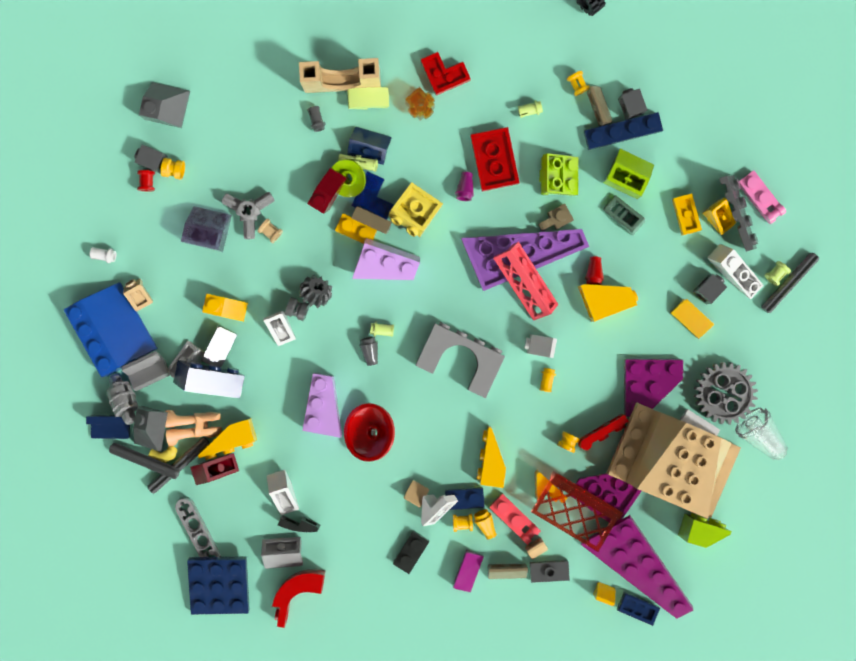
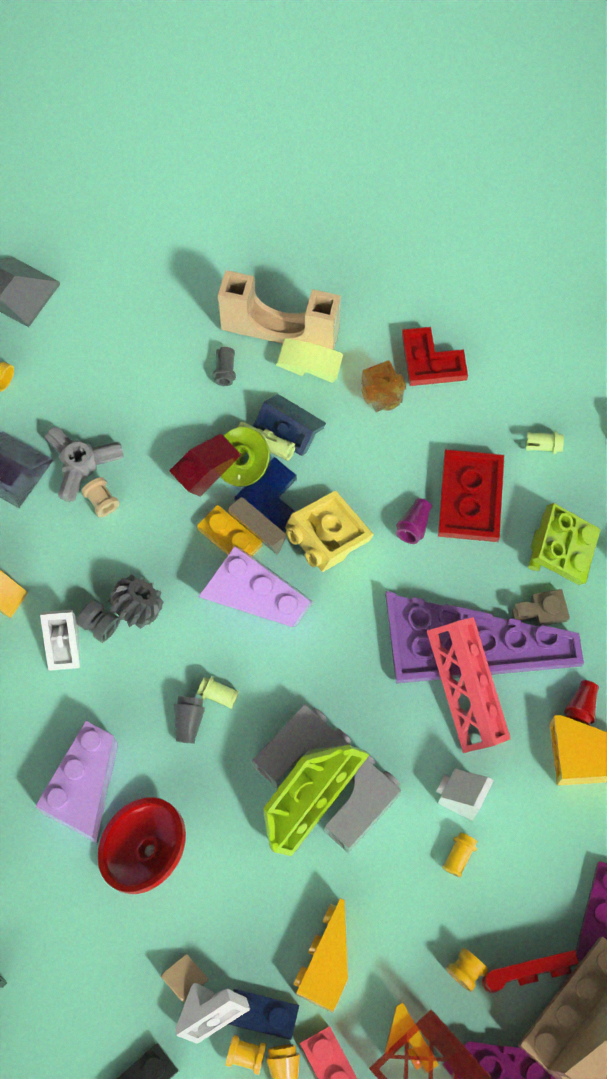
camera: 15 degrees right, 20 degrees down
(453, 375) = (308, 794): none -> lime wedge

